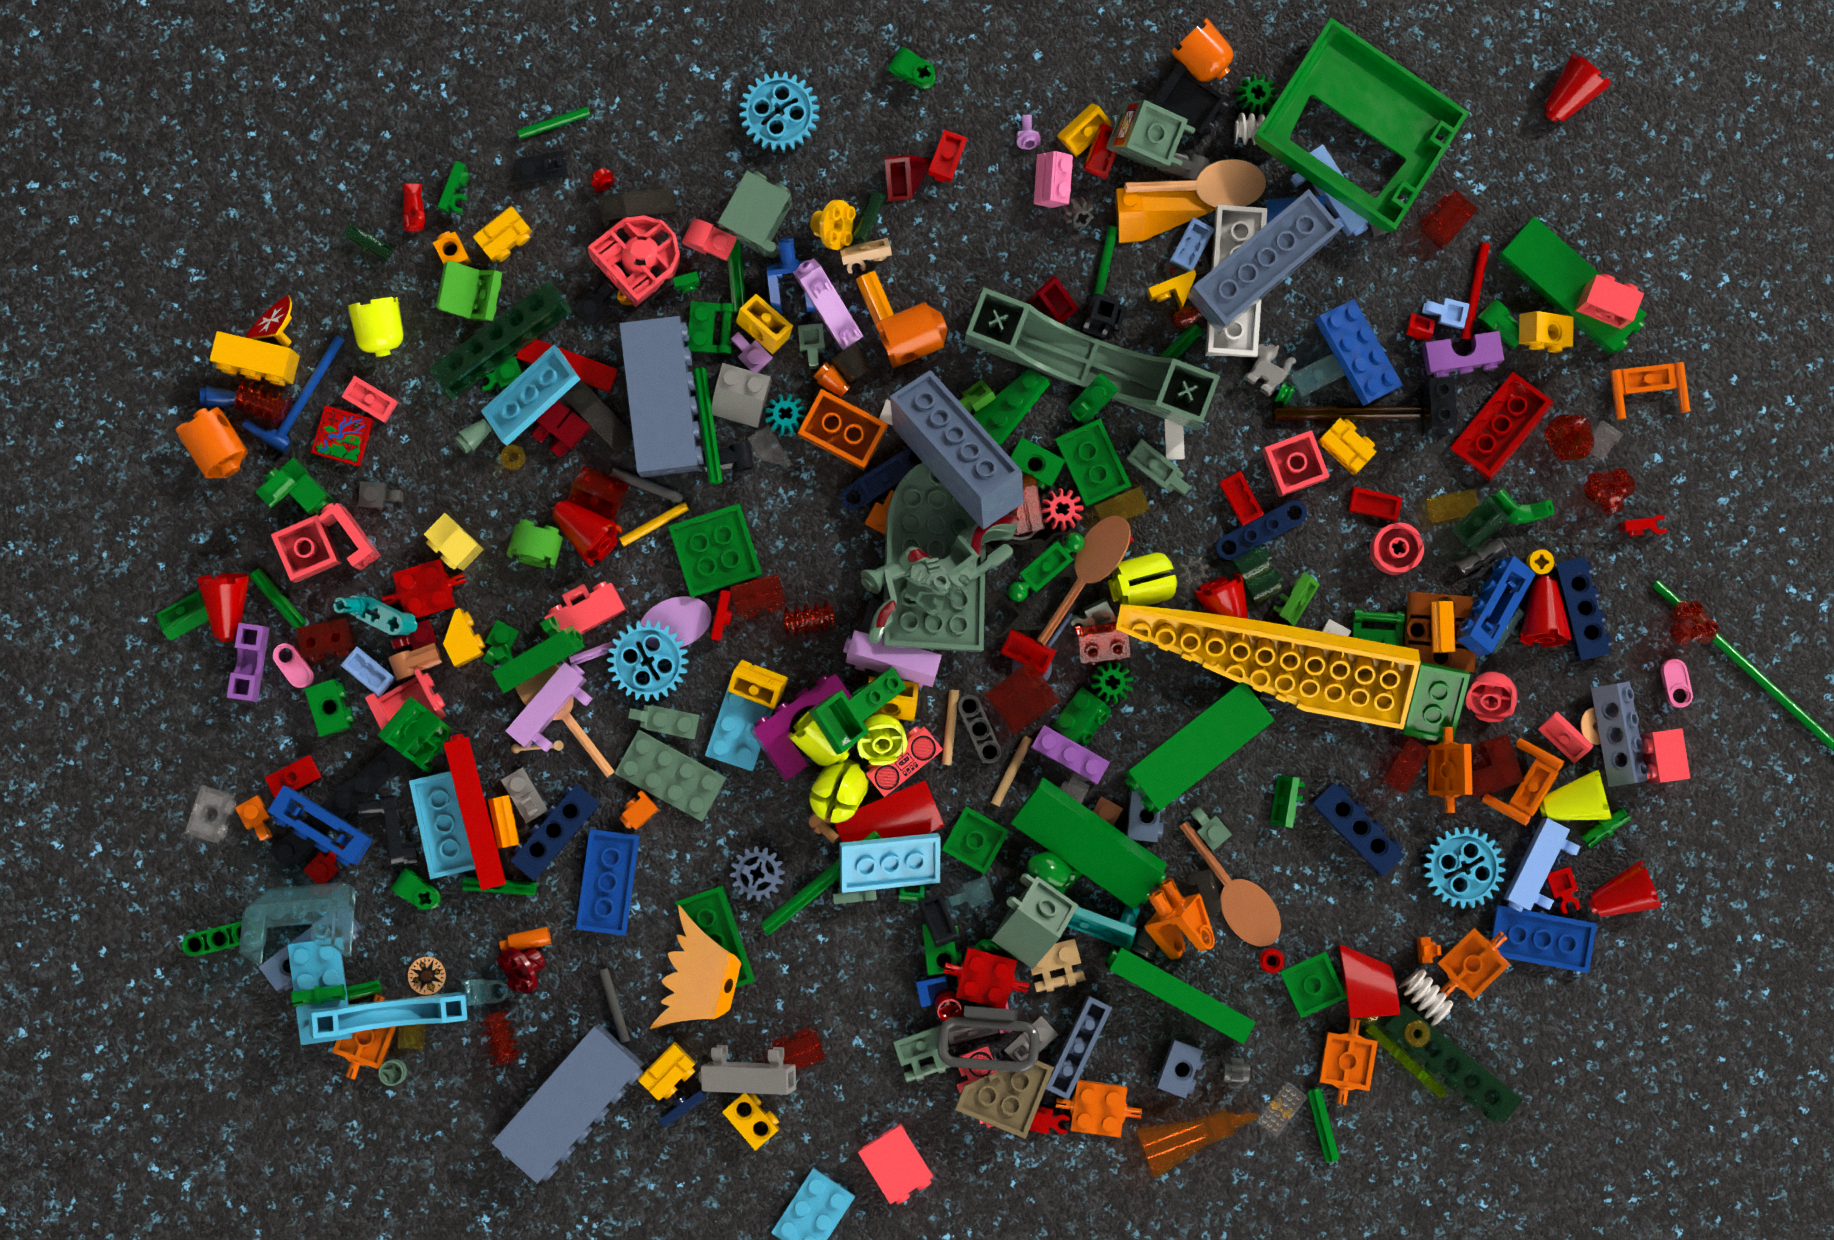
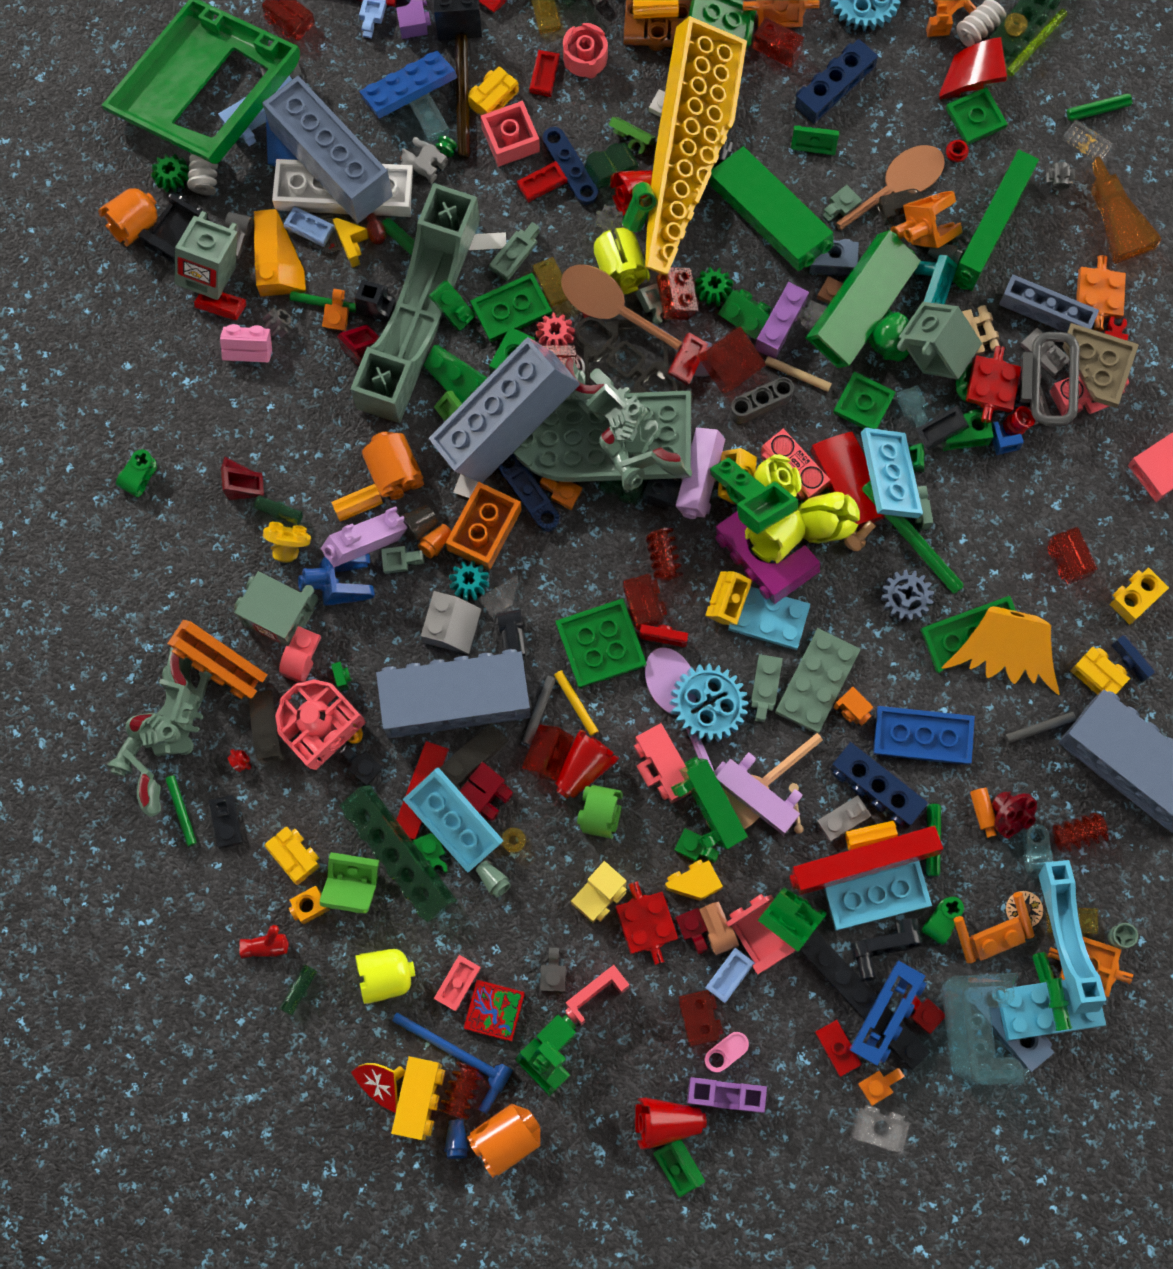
camera: 85 degrees left, 10 degrees down
(208, 941) = (1001, 1128): green beam -> none
(277, 598) = (660, 1070): green axle -> none
(306, 549) = (609, 1039): coral brick -> none
(318, 697) = (783, 1012): green brick -> none
(390, 619) = (681, 952): teal beam -> none
(395, 943) = (997, 938): none -> orange plate
(458, 178) = (236, 901): green plate -> none
(638, 111) = (163, 731): none -> sand green piece
(701, 153) = (217, 659): none -> orange brick
(702, 327) = (374, 661): green plate -> none
(707, 426) = (494, 647): green axle -> none
(736, 277) = (342, 630): green axle -> none
(748, 1077) = (1101, 595): light grey brick -> none
(752, 355) = (410, 614): lavender plate -> none
(764, 323) = (382, 600): yellow brick -> none
(793, 129) = (193, 581): medium azure gear -> none
(874, 250) = (313, 516): tan plate -> none
(919, 1047) = (1058, 448): sand green plate -> none
(947, 156) = (222, 439): red plate -> none
(950, 727) = (758, 428): tan bar -> none
(1027, 138) = (206, 371): lavender plate -> none
(1046, 567) = (610, 340): green plate -> none
(1083, 129) = (198, 323): yellow slope -> none
(1088, 275) = (336, 315): none -> orange plate
(1178, 1053) = (1048, 228): sand blue brick -> none
(1195, 601) = (639, 208): none -> green piece
(1220, 183) = (252, 198): light nougat piece -> none
(1348, 1061) = (1042, 86): orange plate -> none
(1392, 637) = (663, 57): green plate -> none
(1420, 327) = (385, 35): red plate -> none

